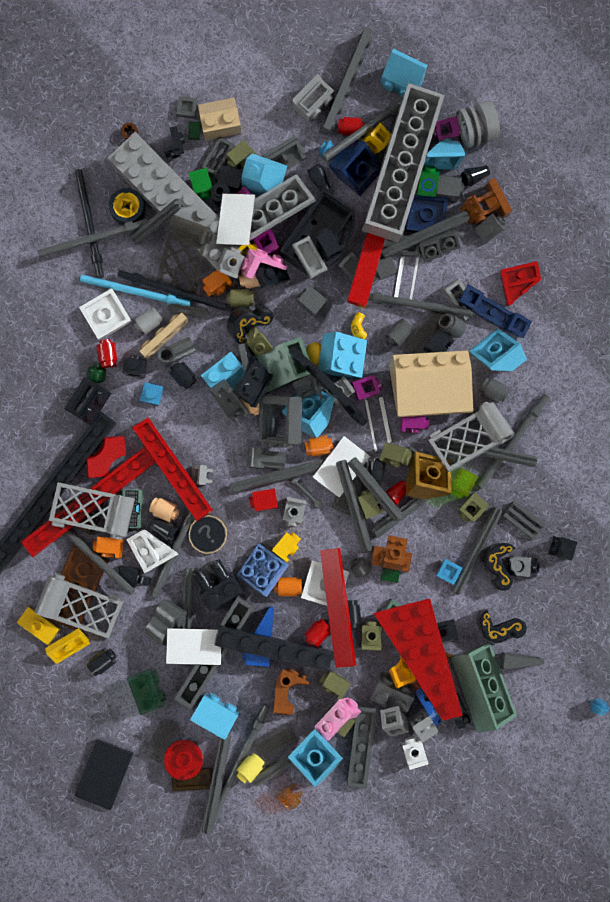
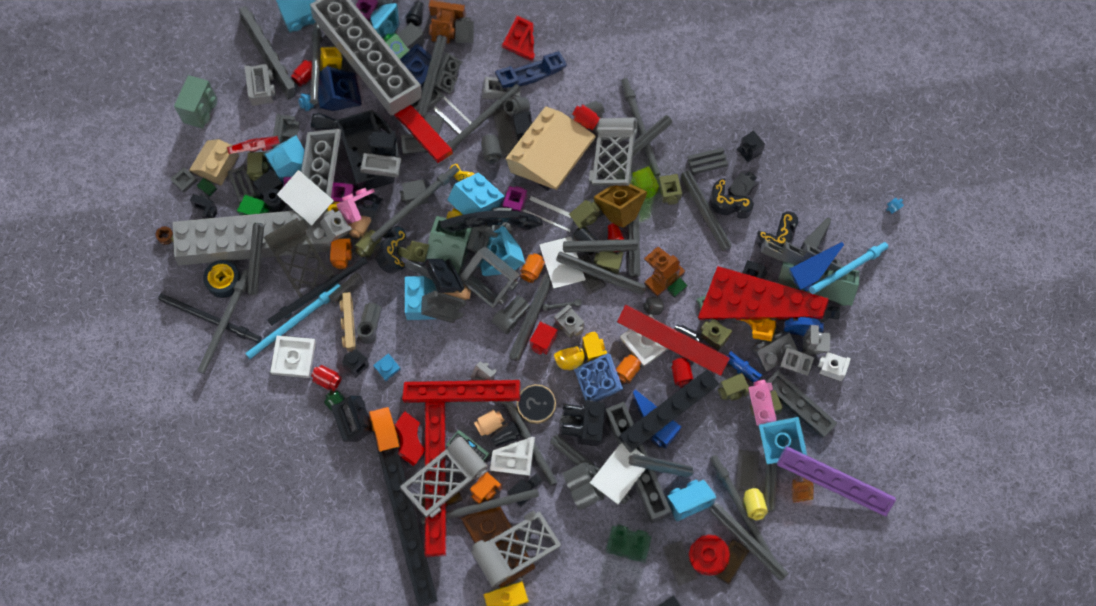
camera: 50 degrees left, 15 degrees down
(67, 646) = (542, 583): yellow plate -> none
(95, 433) = (384, 429): none -> orange slope
(101, 661) = (576, 563): black brick -> none
(147, 321) = (326, 326): light grey brick -> none
(182, 375) = (392, 331): black brick -> none
(222, 674) = (660, 465): none -> dark grey axle
(253, 139) = (254, 144): none -> red wing
(256, 61) = (195, 102): none -> sand green brick
(263, 533) = (569, 358): none -> yellow hair
(281, 703) = (720, 438): dark orange tile -> none
(313, 822) = (836, 481): none -> medium lavender tile
(337, 317) = (441, 180): none -> dark grey bar
(359, 679) = (743, 367): none -> blue pin
(414, 424) = (570, 186): magenta brick -> none
(449, 571) = (707, 241): dark azure plate -> none
(482, 391) = (585, 117): none -> red brick
(483, 685) = (812, 269): none -> blue slope
(491, 667) = (793, 254): none -> dark grey slope
(499, 352) = (564, 86): medium azure slope -> none
(538, 717) = (872, 253): none -> medium azure bar

